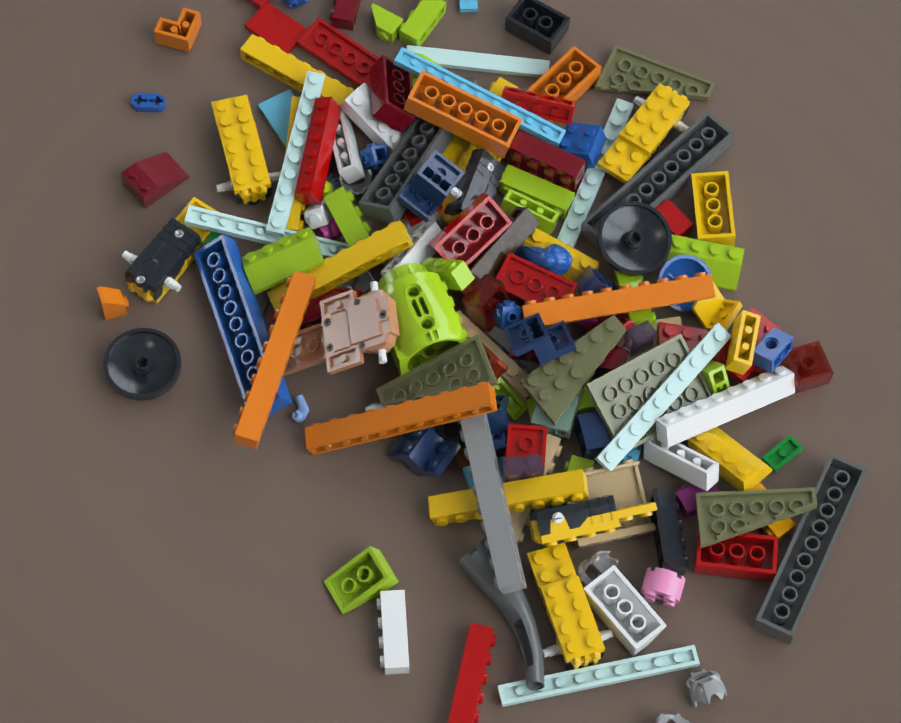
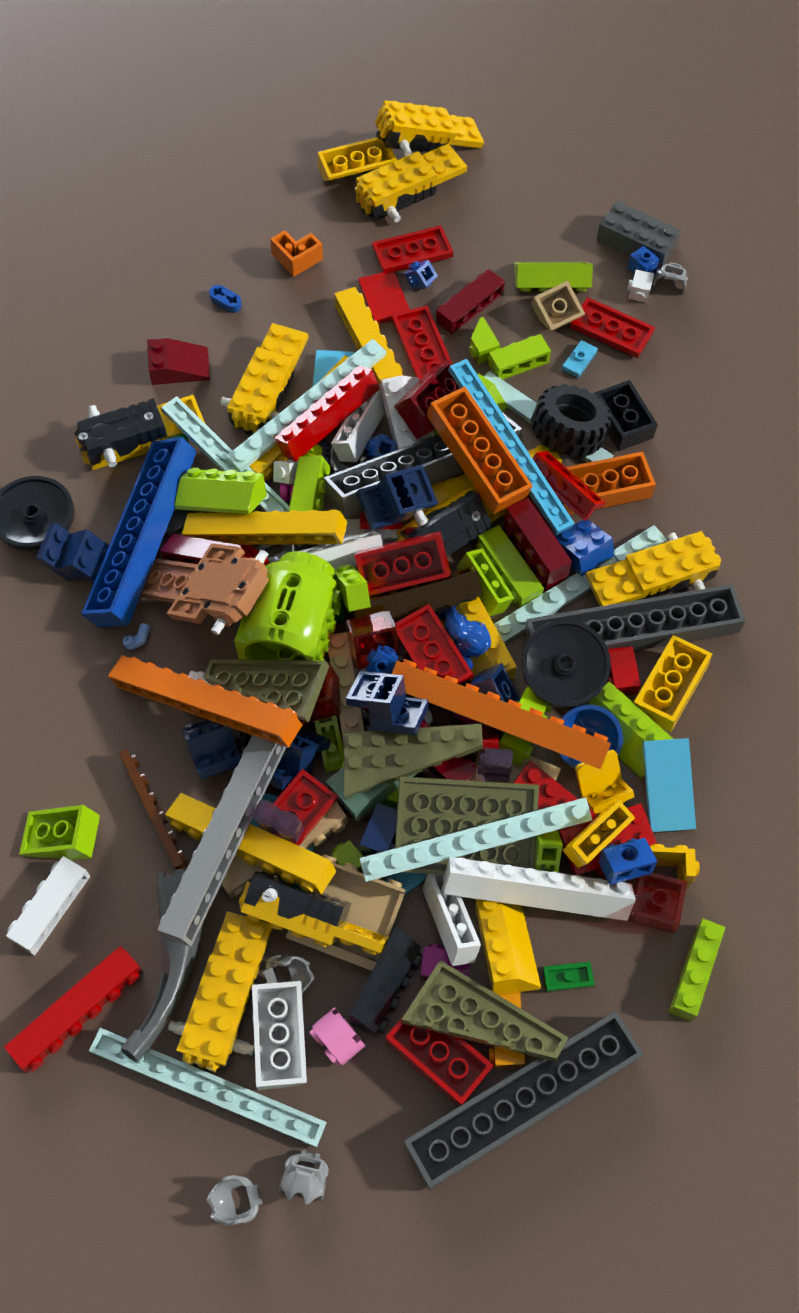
camera: 35 degrees right, 0 degrees up
(112, 302) = (50, 444): orange slope -> none
(205, 375) = (72, 553): none -> dark blue bracket
(274, 361) = (129, 574): orange brick -> none
(408, 519) = (149, 801): none -> reddish brown plate
(504, 51) = (570, 420): none -> black tyre
(640, 75) = (690, 511): olive wing -> none
(760, 282) = (669, 785): none -> medium azure tile
(806, 329) = (678, 857): none -> yellow bracket
(861, 396) = (696, 970): none -> lime brick

